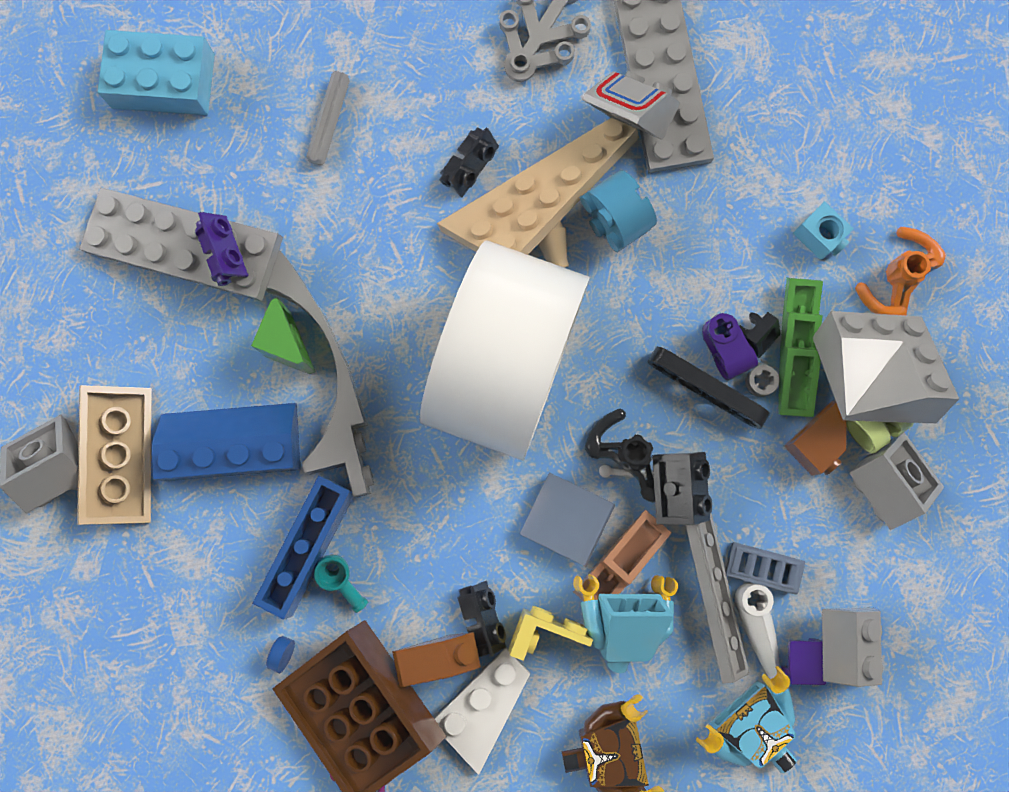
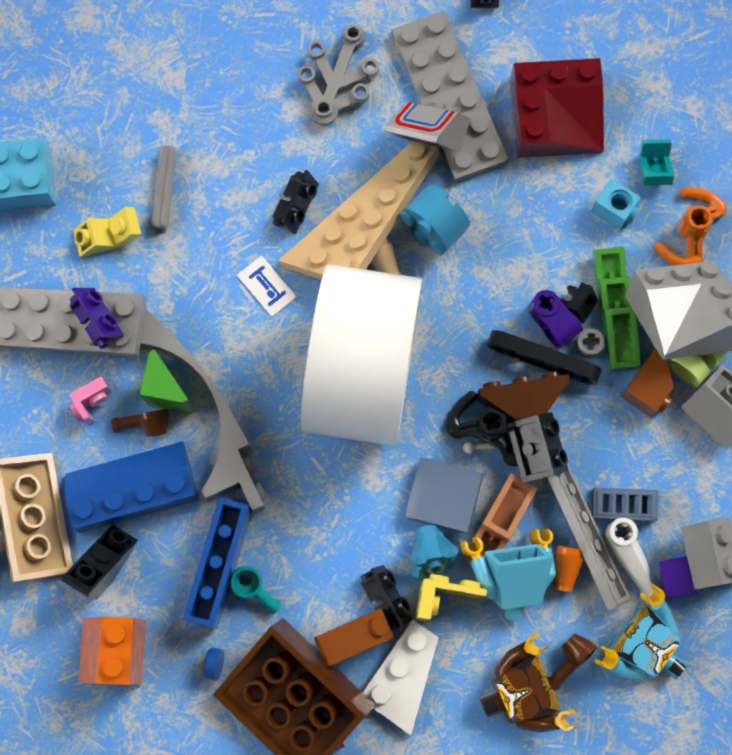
camera: 10 degrees left, 5 degrees down
(173, 622) = (112, 650): none -> orange slope
(176, 522) = (100, 563): none -> black slope
(203, 332) = (90, 394): none -> bright pink bracket
(254, 158) = (103, 235): none -> light yellow slope
(265, 376) = (152, 422): none -> reddish brown bar
(419, 248) = (266, 285): none -> white sticker
(541, 580) = (431, 552): none -> dark azure rock
(677, 428) = (523, 396): none -> reddish brown slope
(678, 720) = (577, 651): none -> reddish brown bar
(687, 623) = (567, 566): none -> orange cone
(781, 109) = (558, 107): none -> dark red slope
(877, 192) = (655, 162): none -> teal bracket

